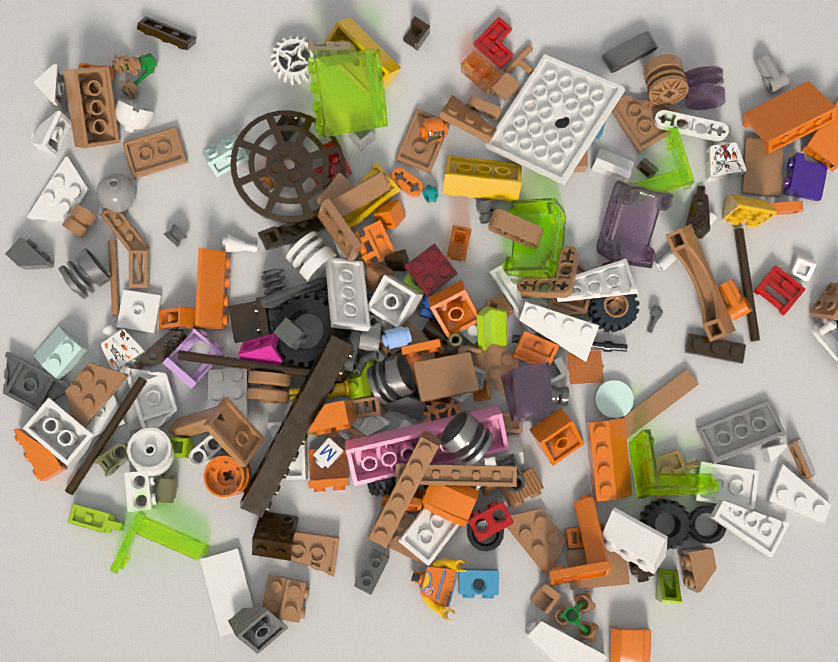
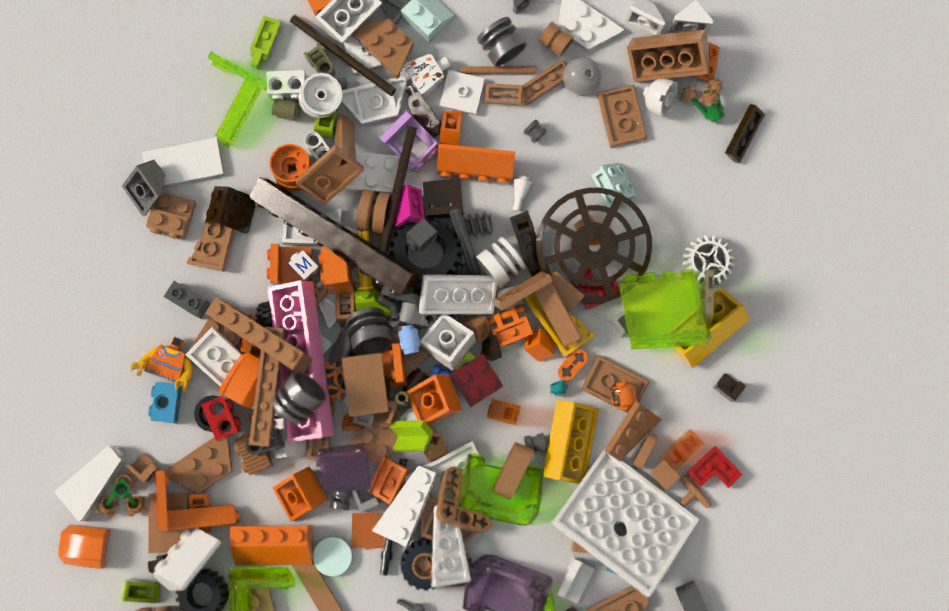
camera: 95 degrees right, 0 degrees up
(289, 120) = (640, 249): dark brown bracket -> none

